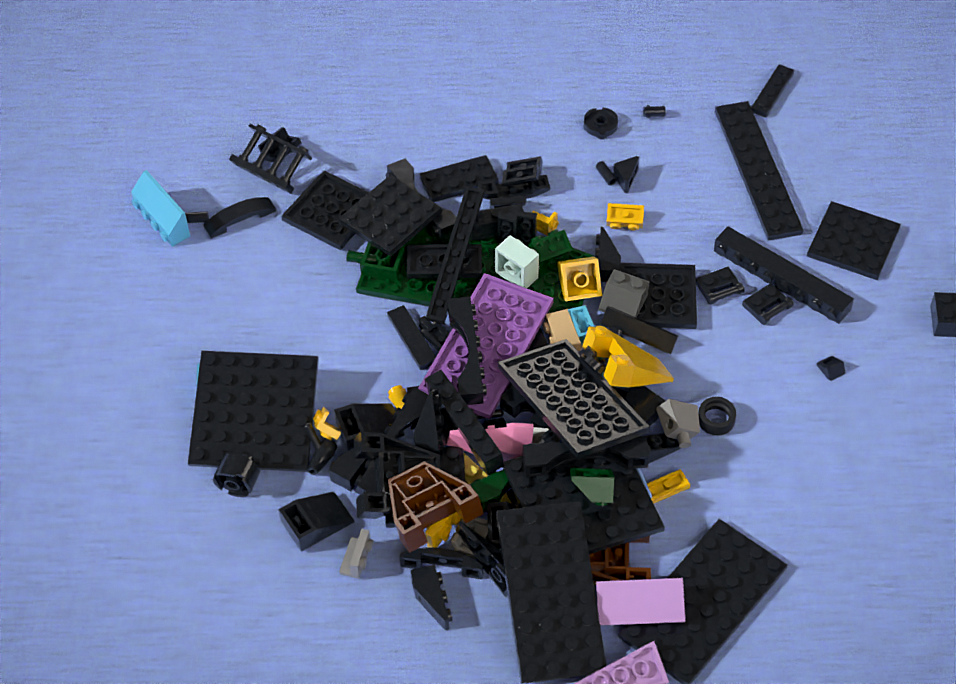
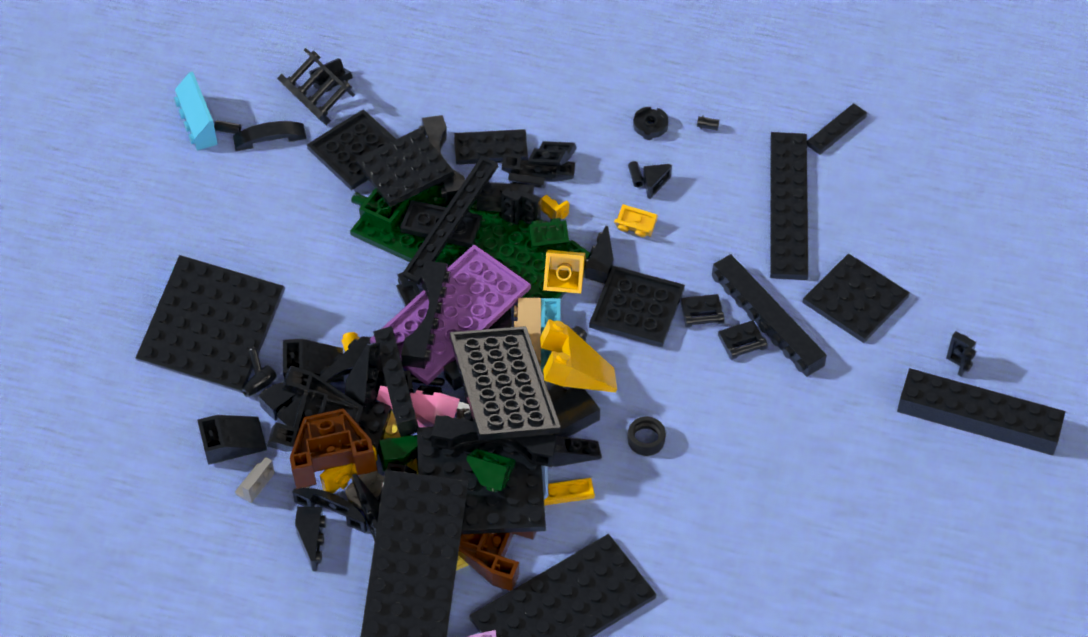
camera: 15 degrees right, 0 degrees up
(236, 474) = (173, 378): black brick -> none
(326, 429) = (270, 356): yellow bracket -> none
(411, 337) = (385, 288): black tile -> none
(516, 262) = (507, 241): light aqua brick -> none
(592, 360) = (538, 350): black plate -> none
(624, 293) = (600, 298): dark grey slope -> none
(639, 329) = (604, 335): black tile -> none
(640, 601) = (497, 590): lavender tile -> none
(679, 421) = (605, 431): light grey torso -> none
(831, 367) = (780, 417): black slope -> none

